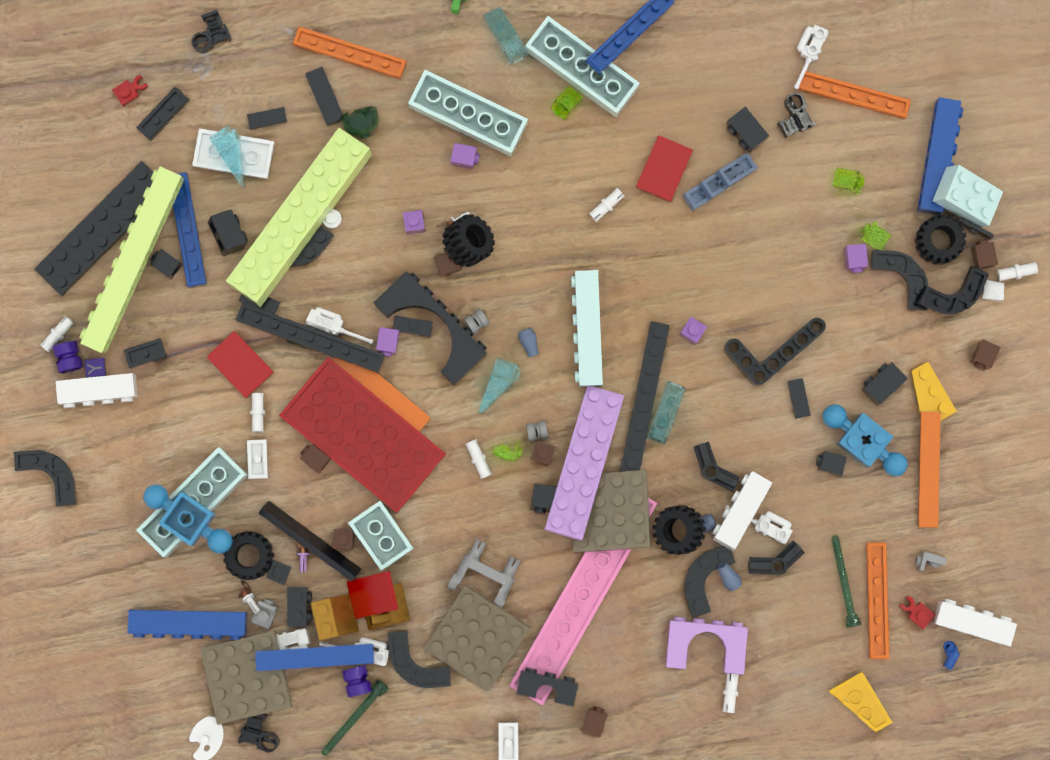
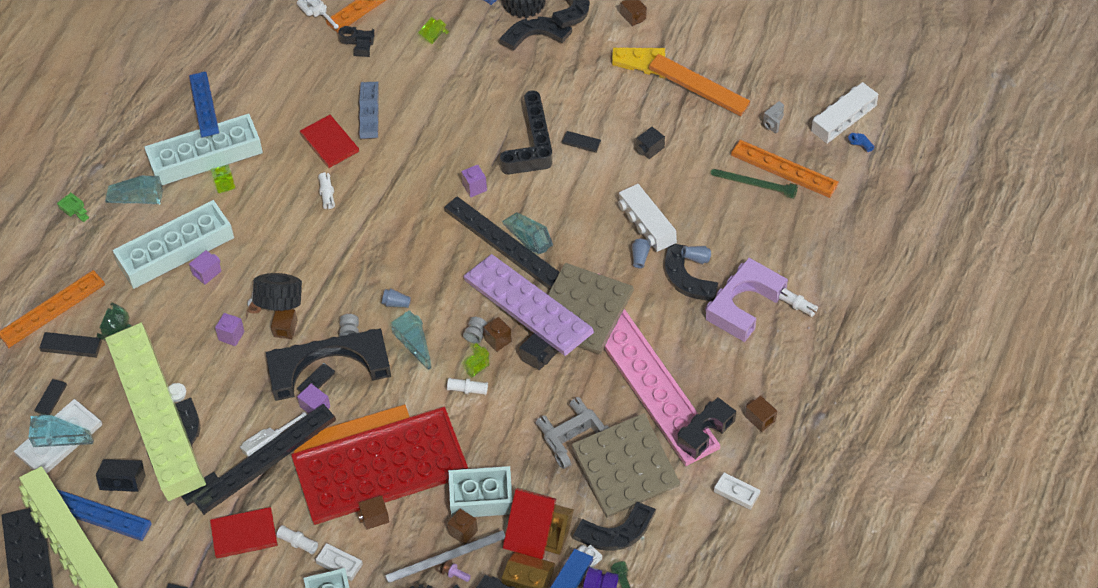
camera: 55 degrees left, 30 degrees down
(165, 263) = (106, 542): black brick -> none
(588, 328) = (417, 251): light aqua brick -> none
(664, 532) = (627, 250): black tyre -> none
(722, 477) = (598, 223): black piece -> none
(747, 130) = (343, 70): black brick -> none
(764, 526) = (676, 207): white piece -> none
(787, 557) = (709, 217): black piece -> none
(856, 258) = (497, 52): medium lavender brick -> none
(862, 700) = (862, 215): yellow wing -> none
(875, 235) = (489, 36): clear neon green bracket -> none
(884, 383) = (610, 79): black brick -> none
(894, 463) = (646, 111): dark azure brick -> none
(919, 613) = (812, 146): red plate -> none

